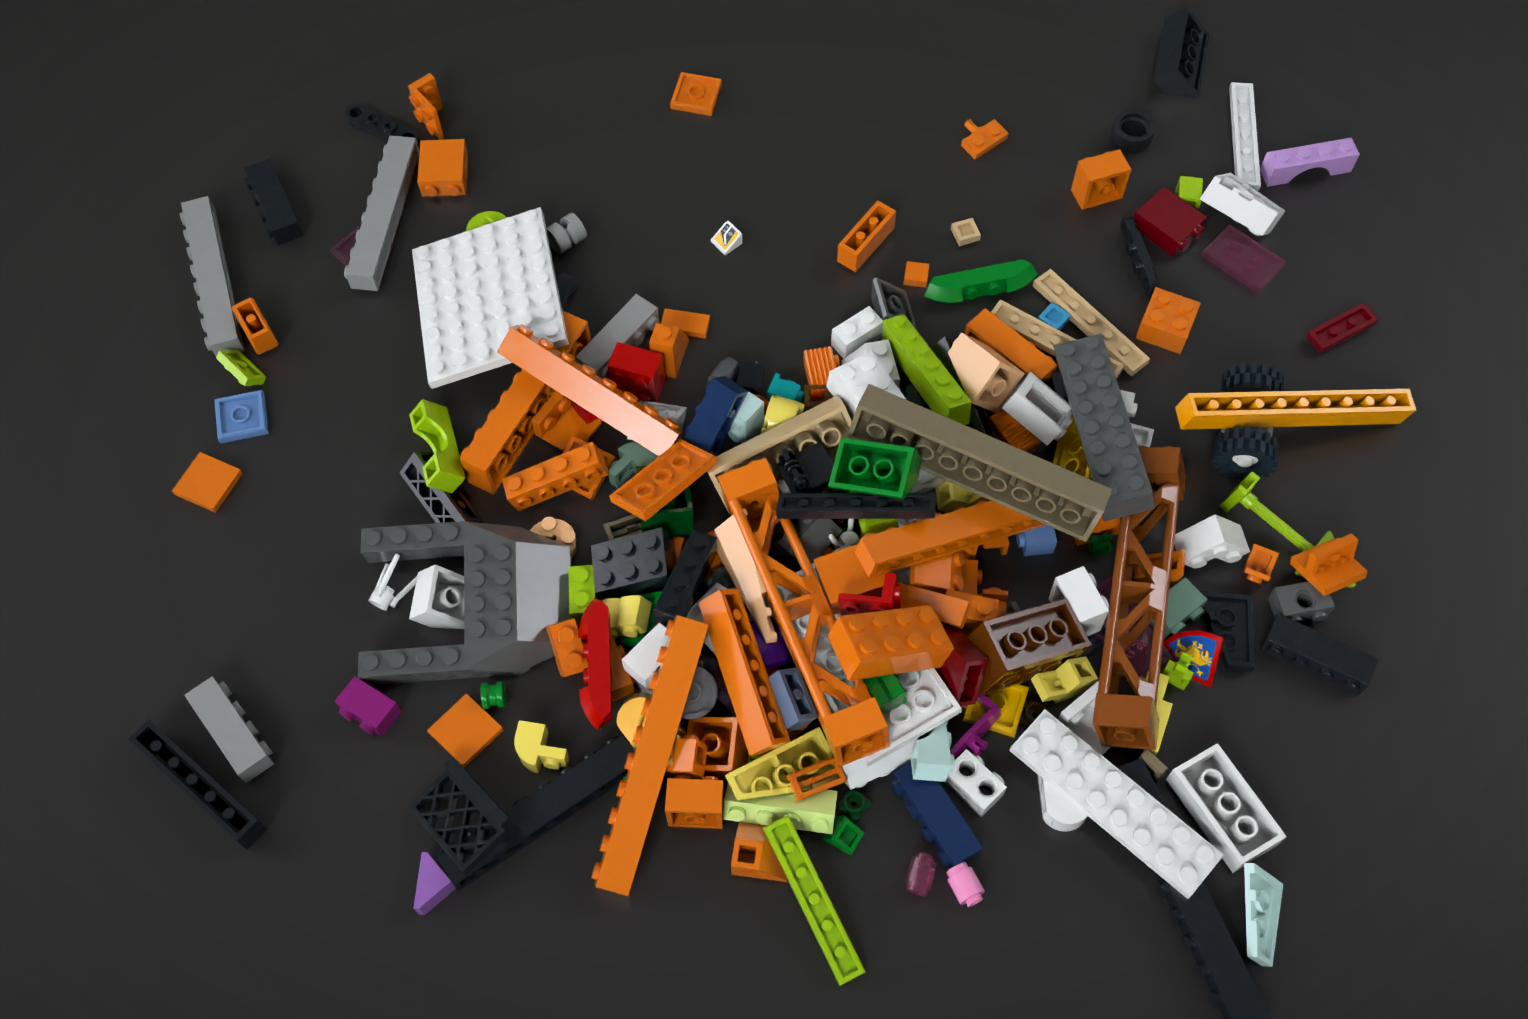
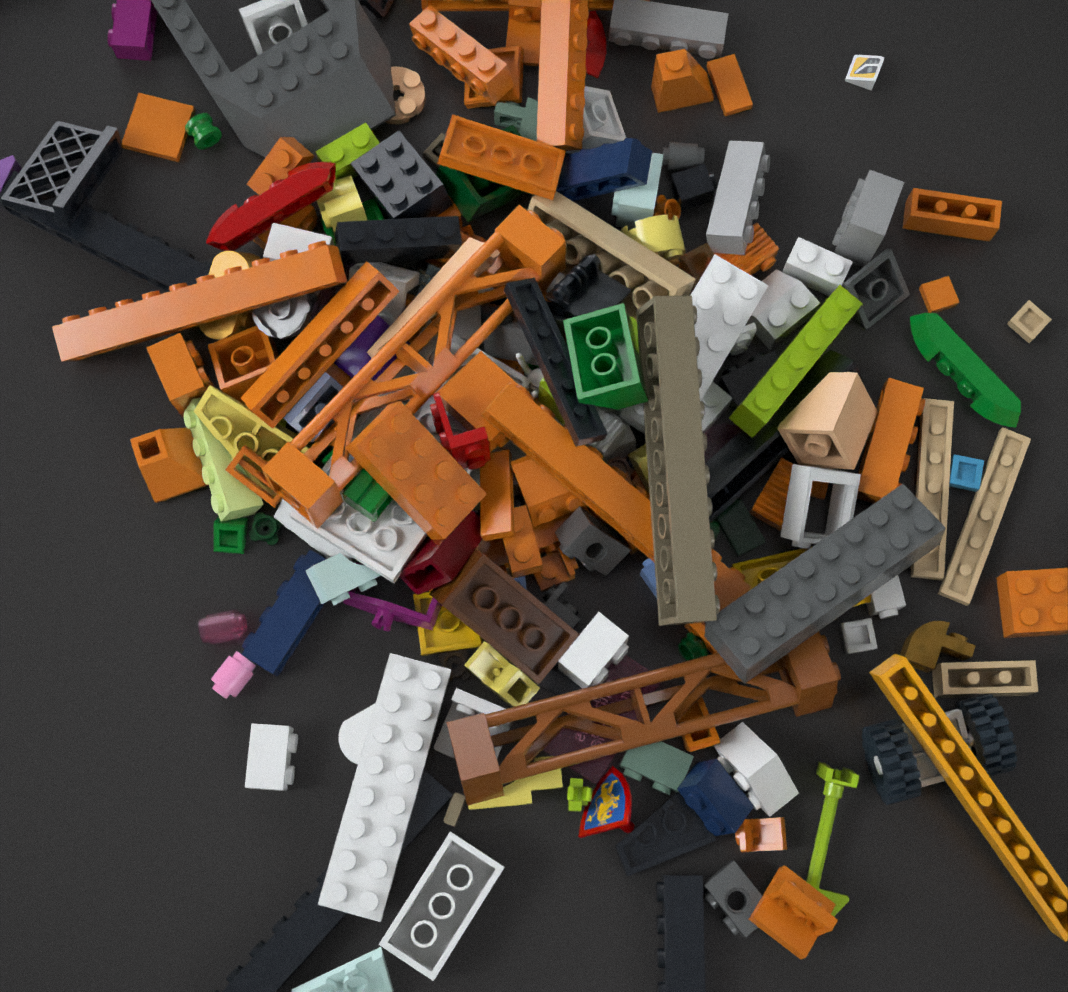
camera: 60 degrees right, 15 degrees up
(532, 749) = (166, 196): light yellow brick -> none
(637, 371) = (629, 66): red brick -> none
(689, 757) = (214, 343): orange brick -> none
(779, 352) = (737, 197): none -> light grey brick
(785, 388) = (694, 227): teal brick -> none
(814, 900) = (142, 534): lime tile -> none
(845, 279) = (867, 217): none -> light grey brick
(968, 786) = (336, 634): white brick -> none
(991, 567) = (591, 541): none -> dark grey brick
(1047, 886) = (270, 757): none -> white brick
(1167, 394) = (927, 641): none -> pearl gold brick
(1212, 365) = (982, 678): none -> tan brick
(1222, 577) = (715, 797): none -> dark blue brick

